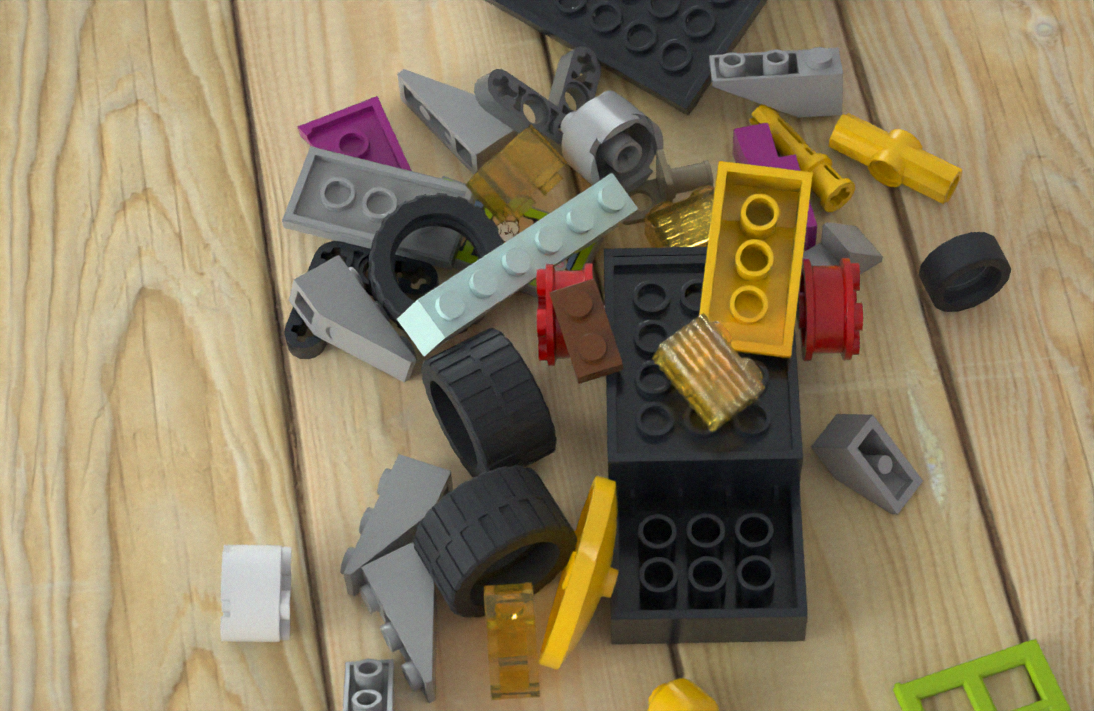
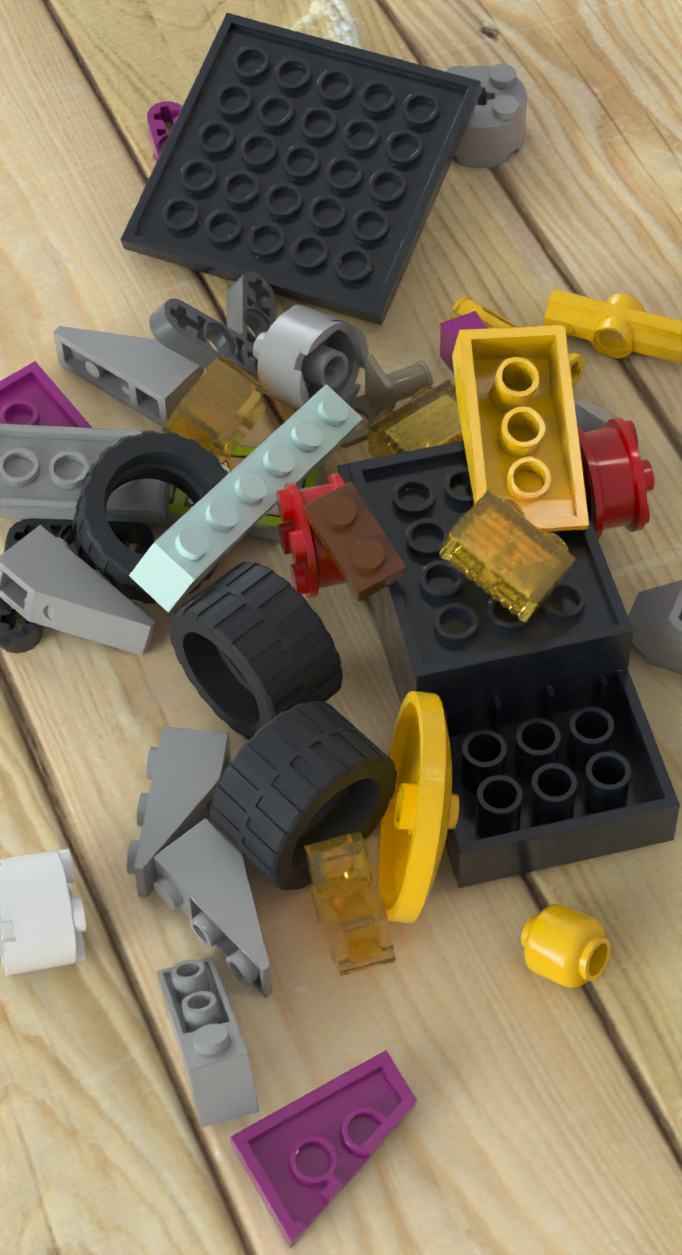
camera: 15 degrees left, 5 degrees down
(789, 81) = (486, 267): light grey slope -> none

